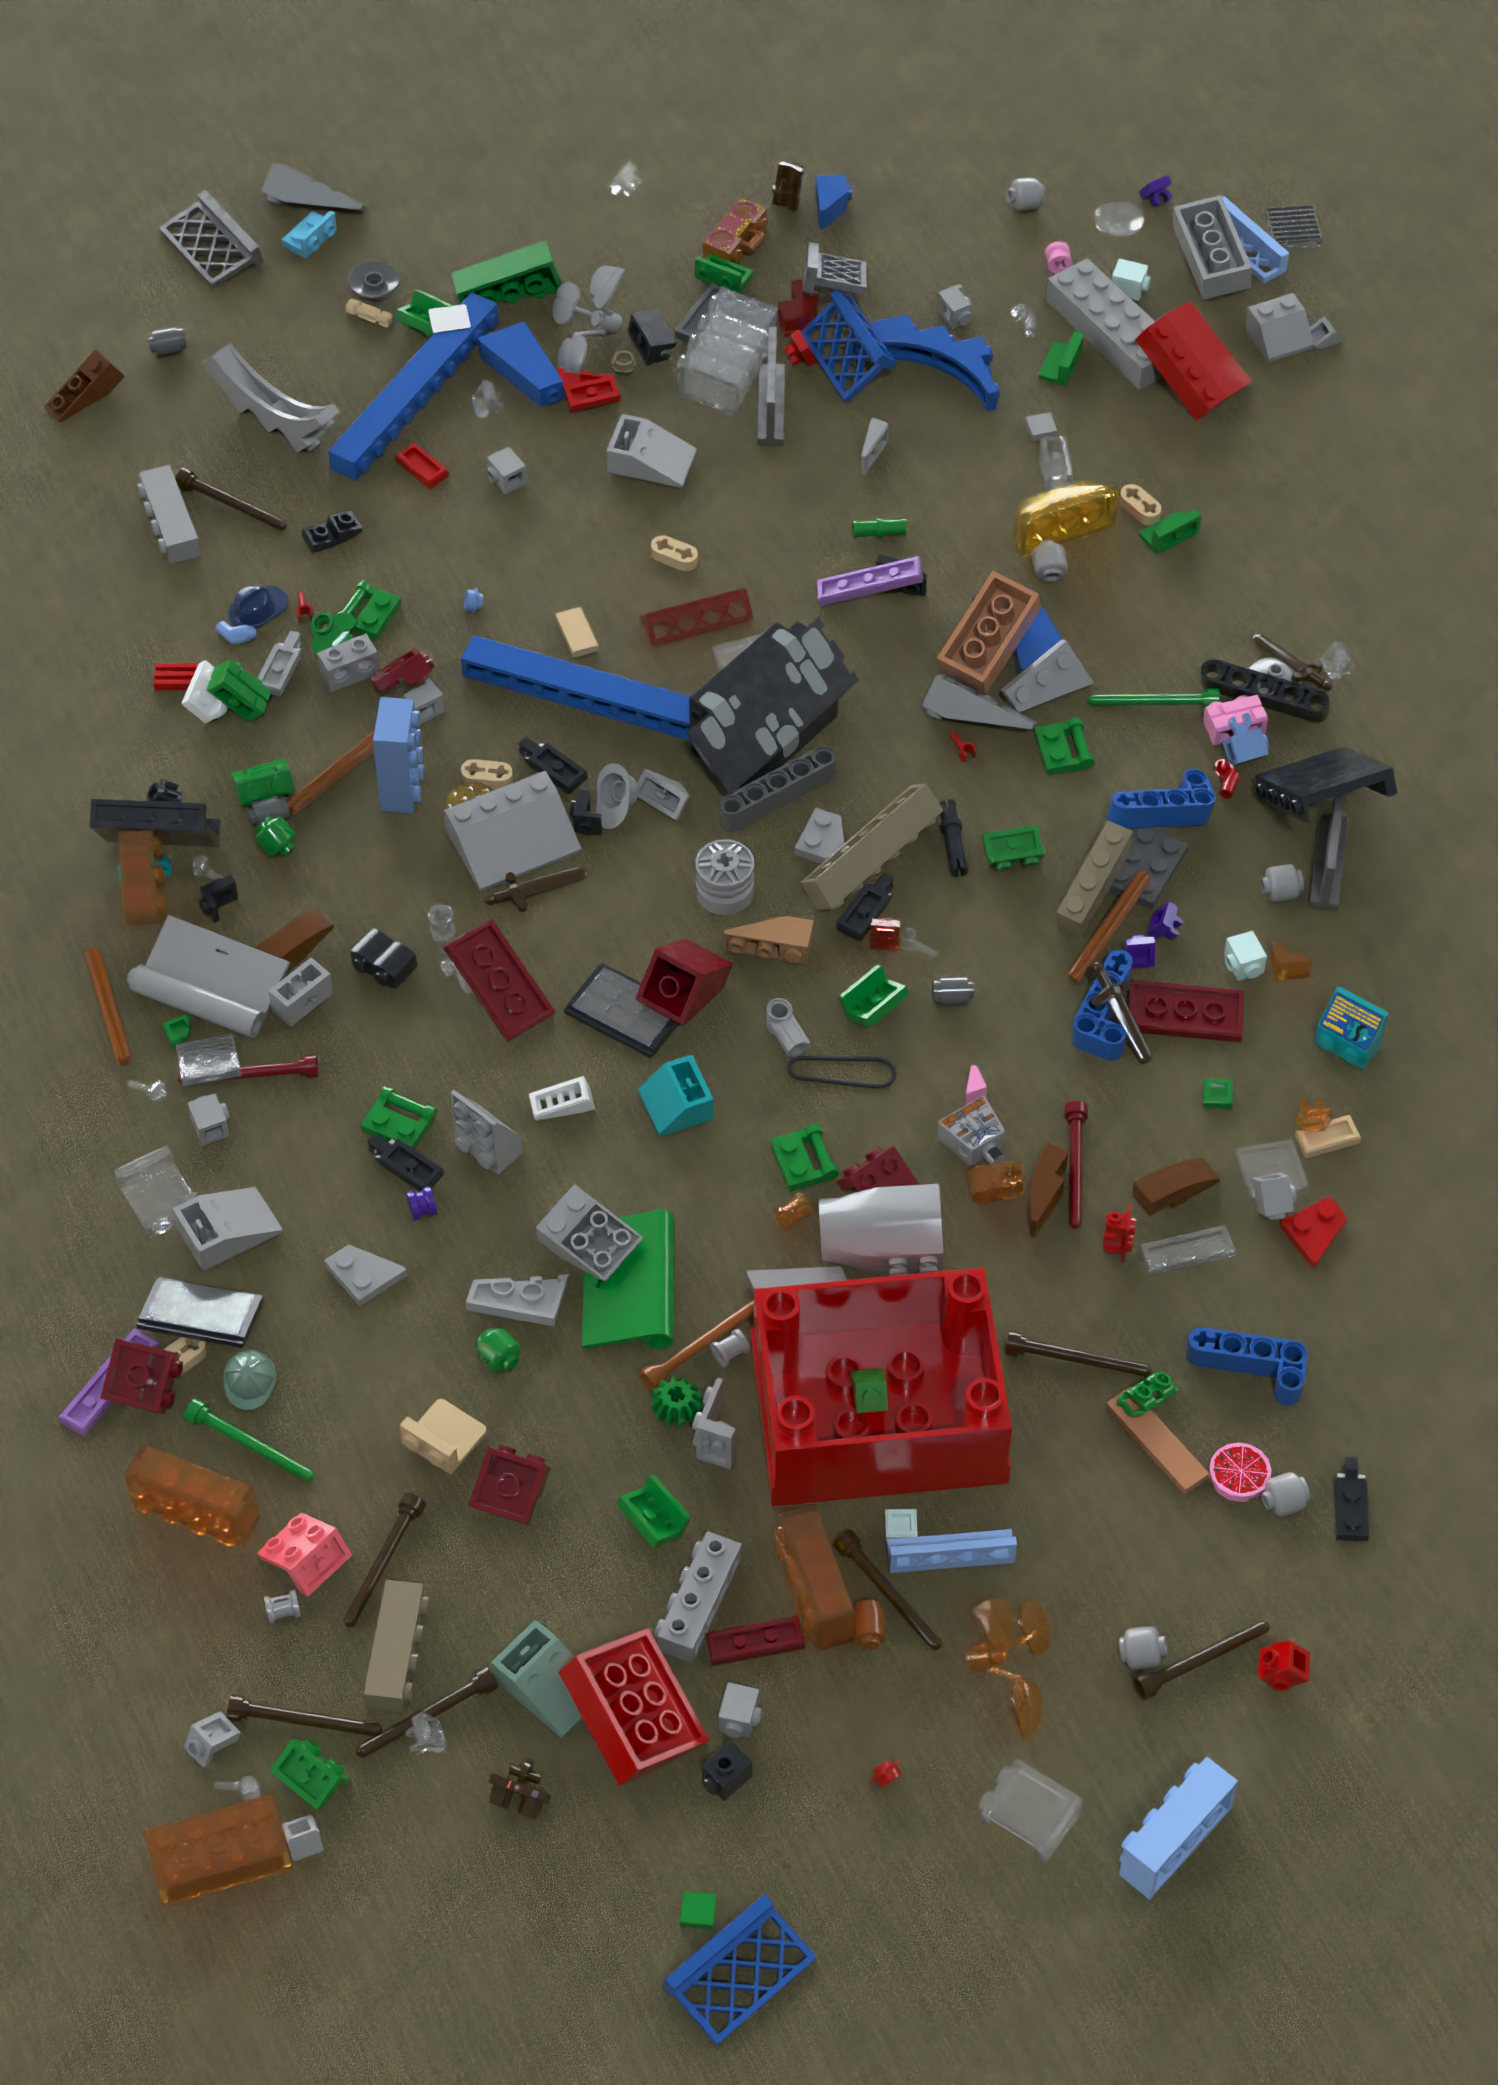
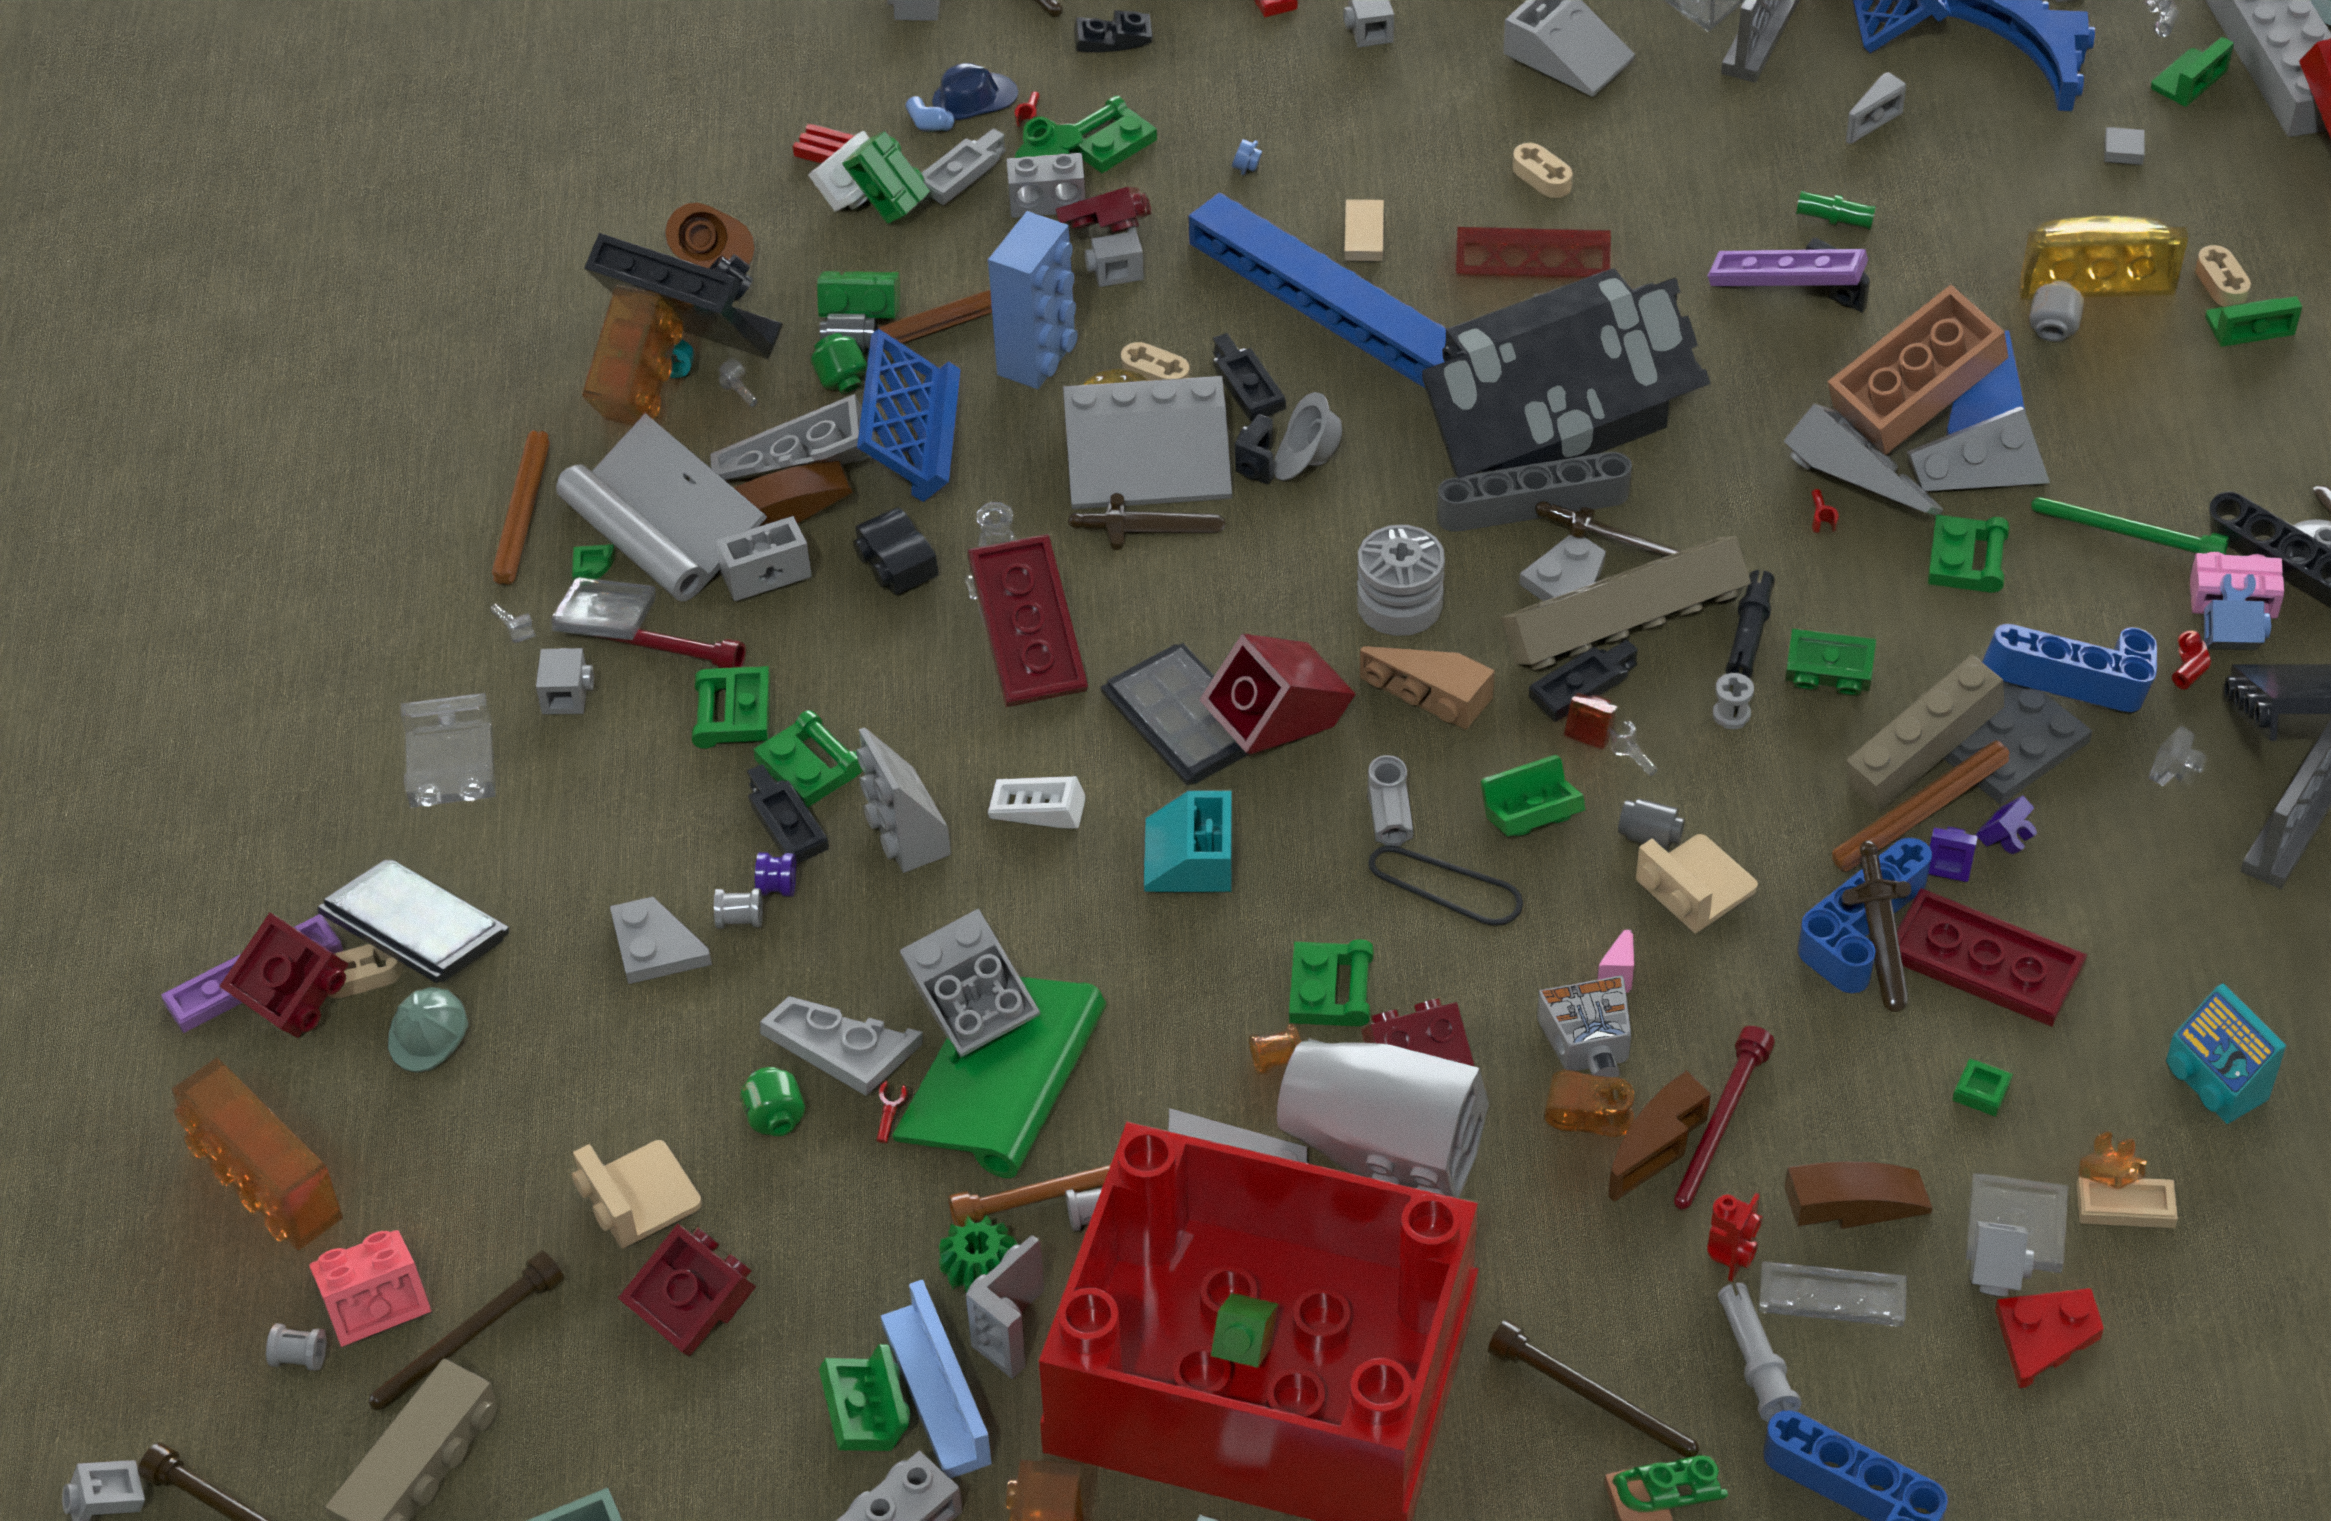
camera: 25 degrees right, 5 degrees down
(135, 771) = (704, 233): none -> dark orange piece
(199, 1413) = (338, 1050): green piece -> none
(217, 894) = (729, 413): black bracket -> none
(224, 1224) = (506, 818): light grey slope -> none
(284, 900) = (809, 439): none -> light grey wedge
(338, 1095) = (744, 705): none -> green plate
(356, 852) = (932, 424): none -> blue fence
(409, 1233) = (738, 908): none -> light grey bush
(572, 1329) = (889, 1111): none -> red hand
(662, 793) = (1374, 454): light grey slope -> none
(692, 1486) = (937, 1385): none -> light blue fence
(817, 801) = (1582, 521): none -> dark brown sword
(962, 896) = (1742, 693): none -> light grey bush
(994, 1019) = (1694, 880): none -> tan bracket
(1055, 462) = (2120, 184): clear brick -> none
(1168, 1308) = (1763, 1369): none -> light grey pin
(1245, 846) = (2177, 759): none -> clear tile
(1245, 956) = (2108, 906): light aqua brick -> none
(1282, 883) = (2211, 824): light grey head -> none
(1289, 965) = (2173, 941): clear orange panel -> none

